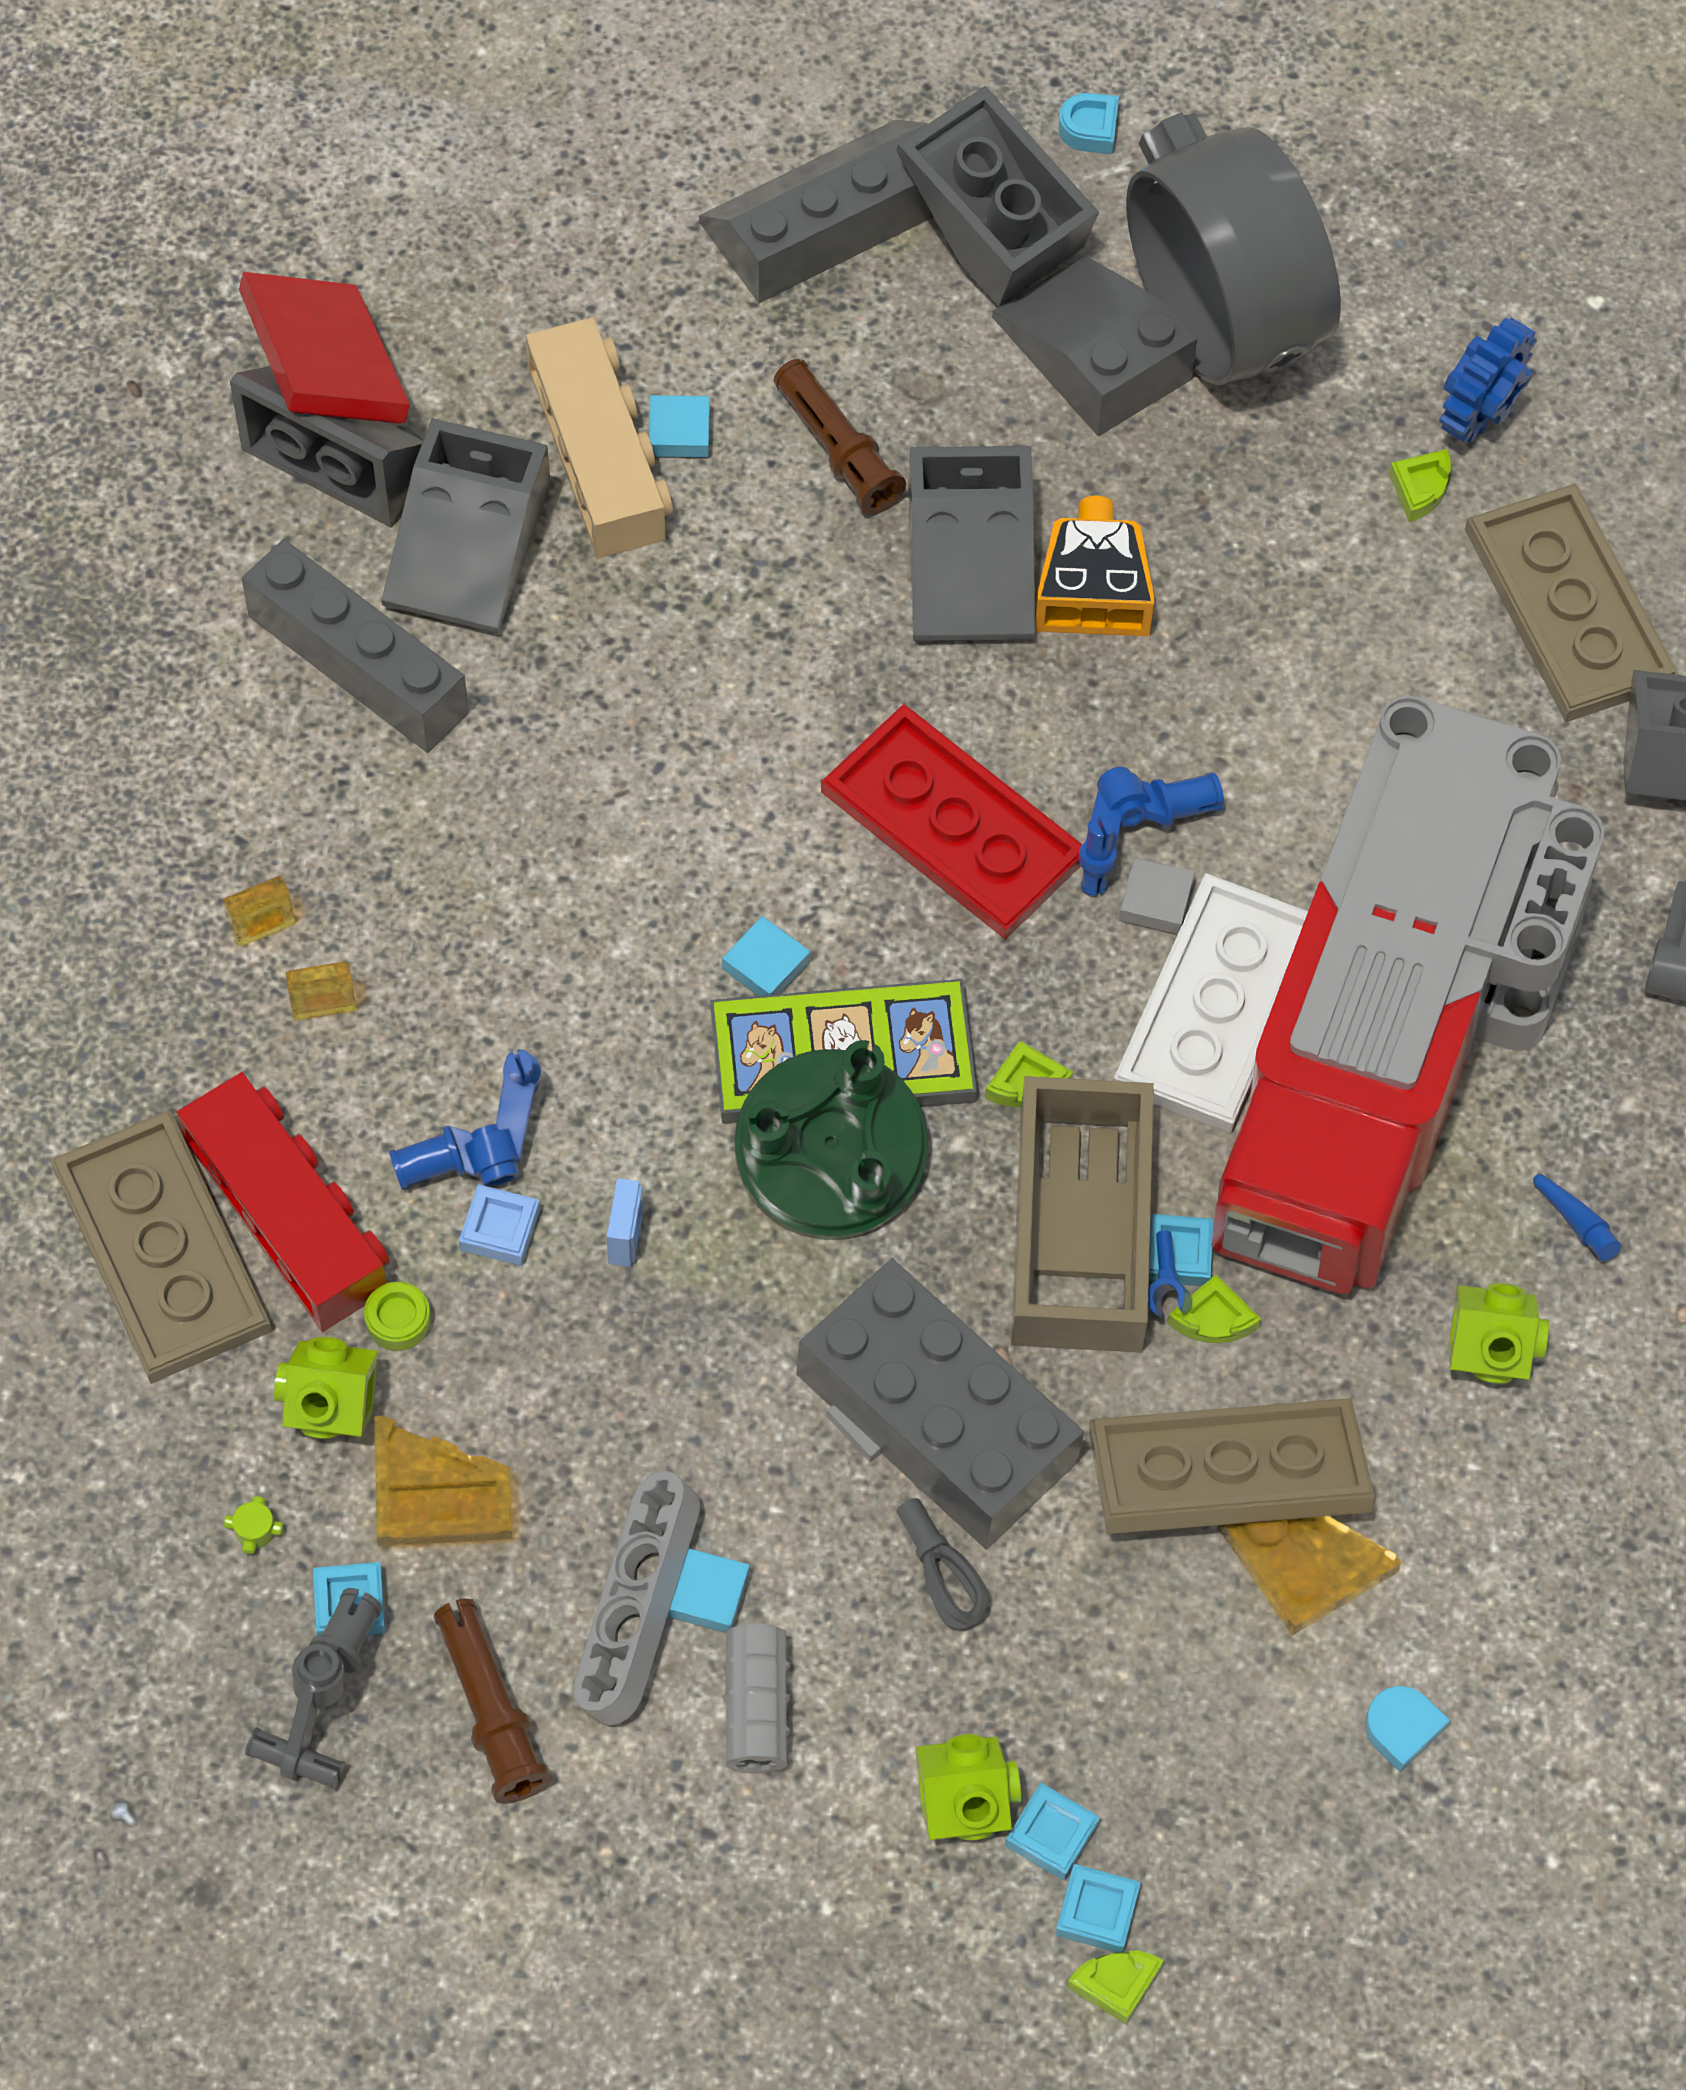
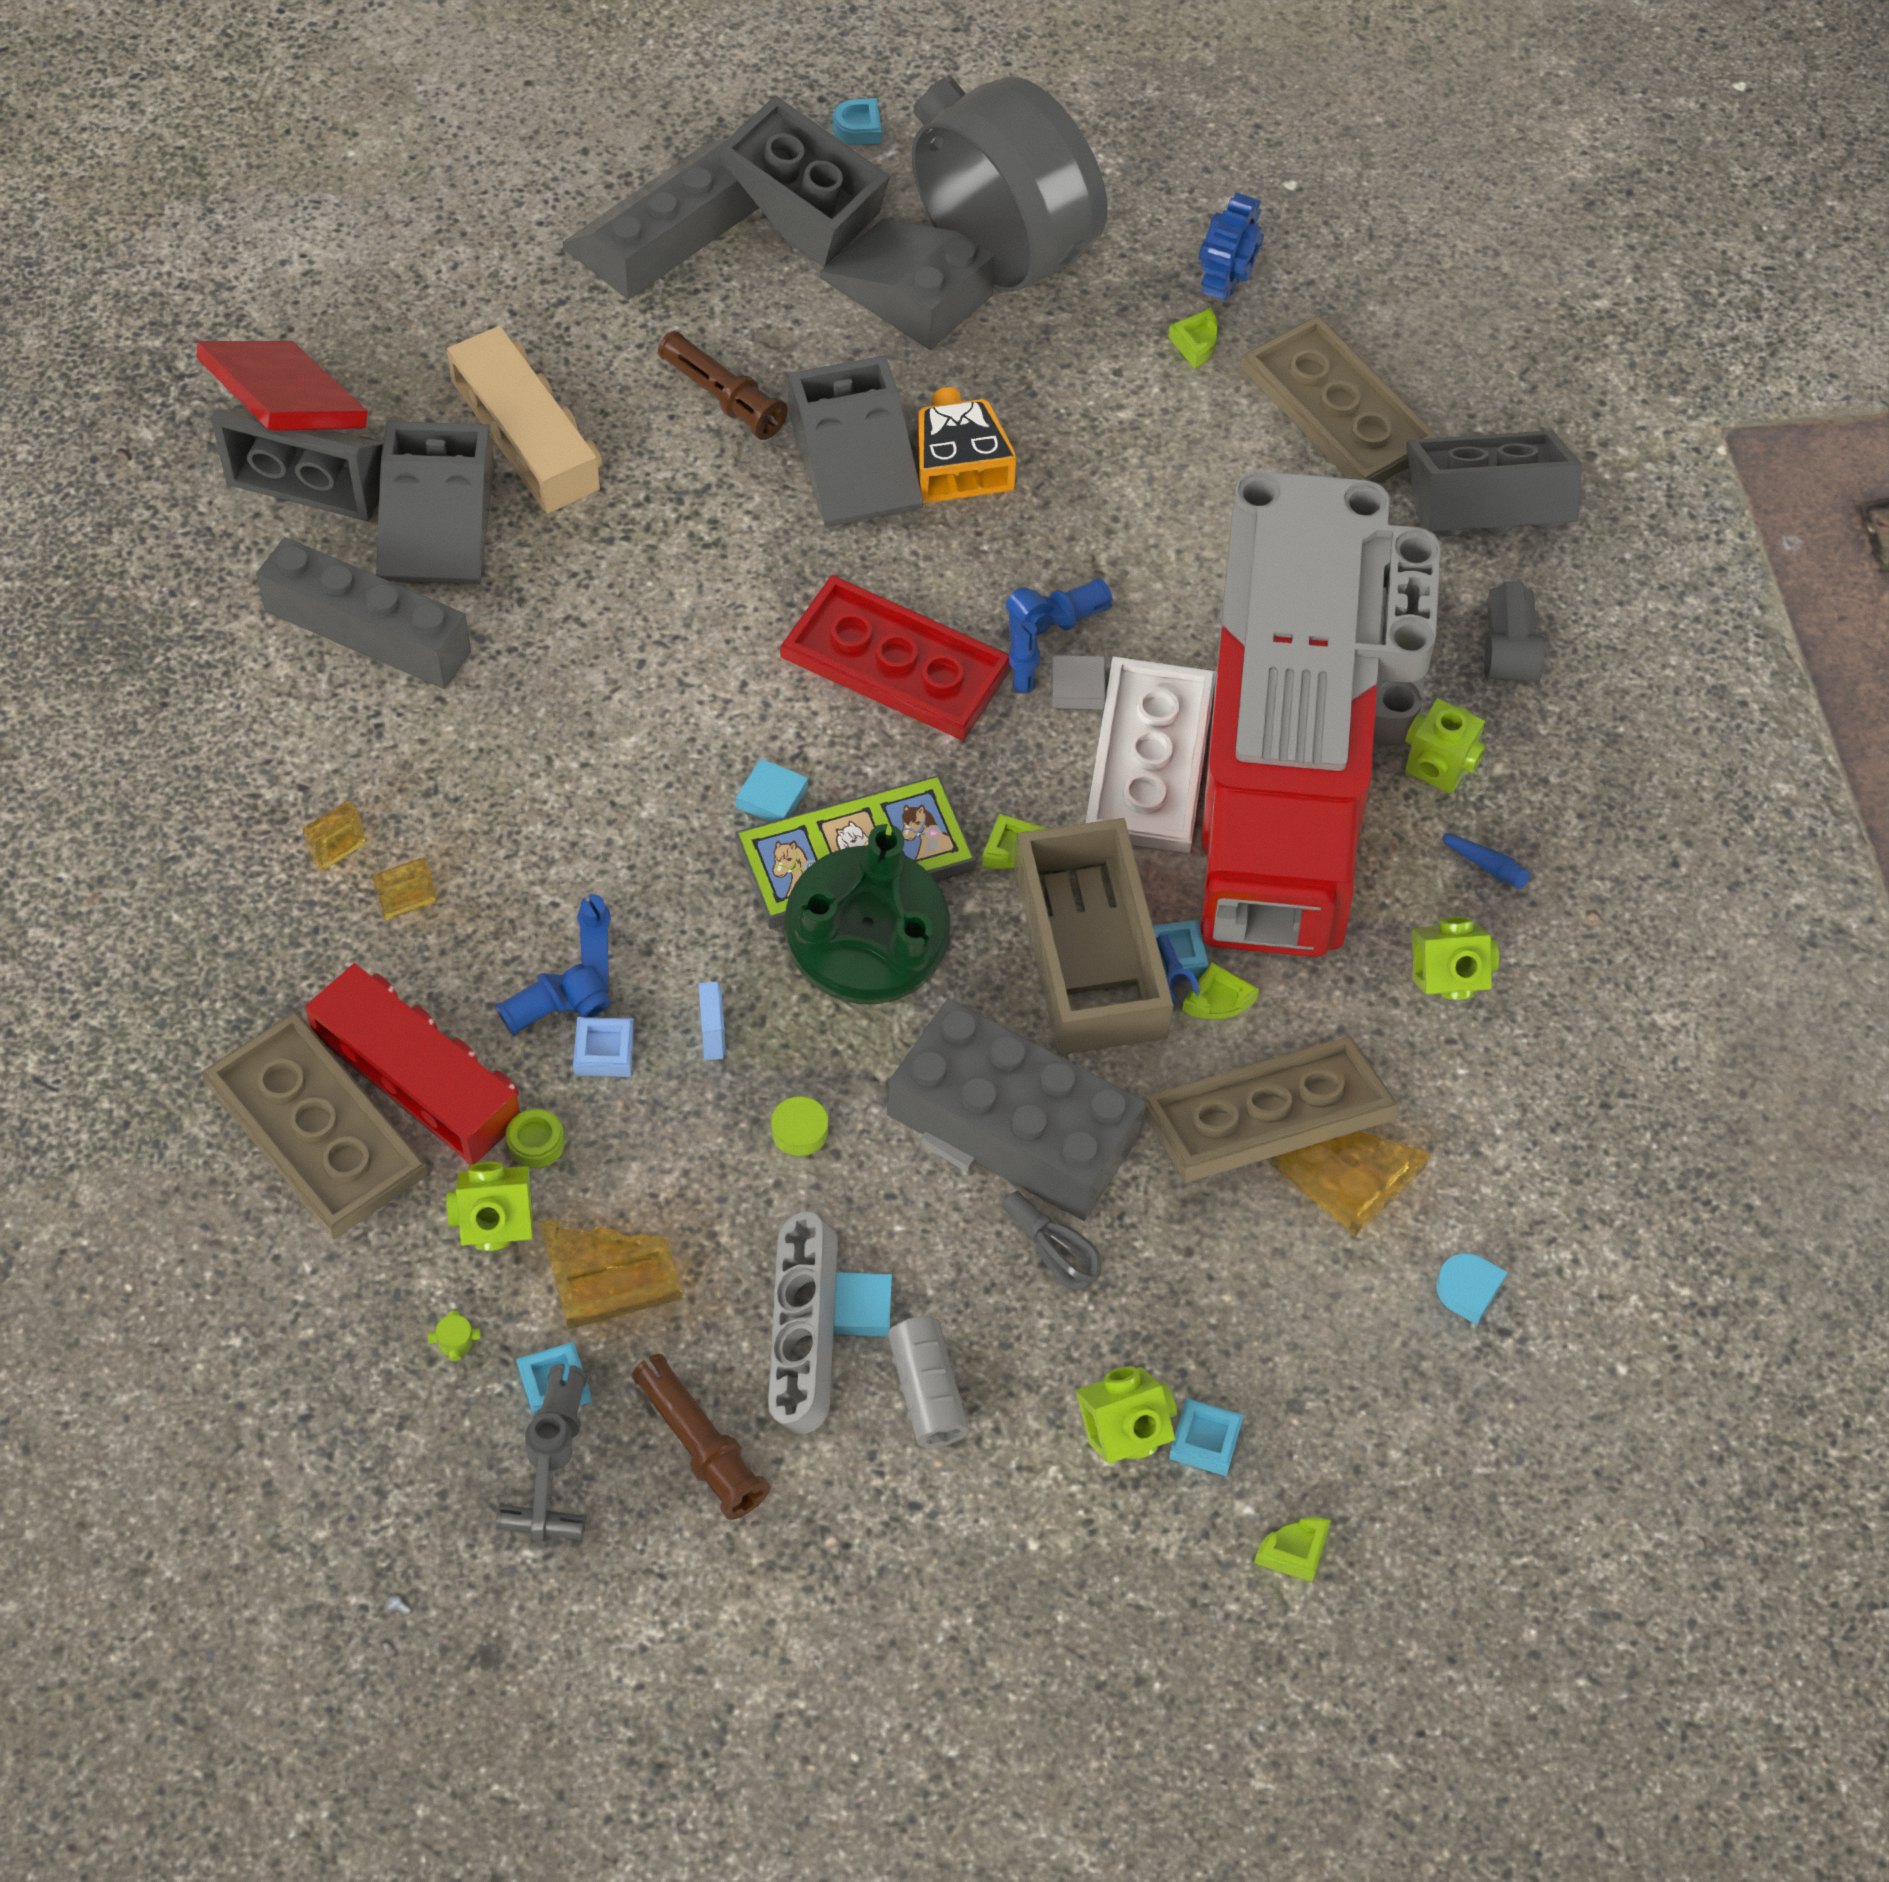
camera: 15 degrees left, 5 degrees down
(679, 425) = (590, 399): medium azure tile -> none
(693, 1367) = (799, 1126): none -> lime tile
(1097, 1908) = (1262, 1491): medium azure tile -> none
(1564, 1067) = (1444, 745): none -> lime brick

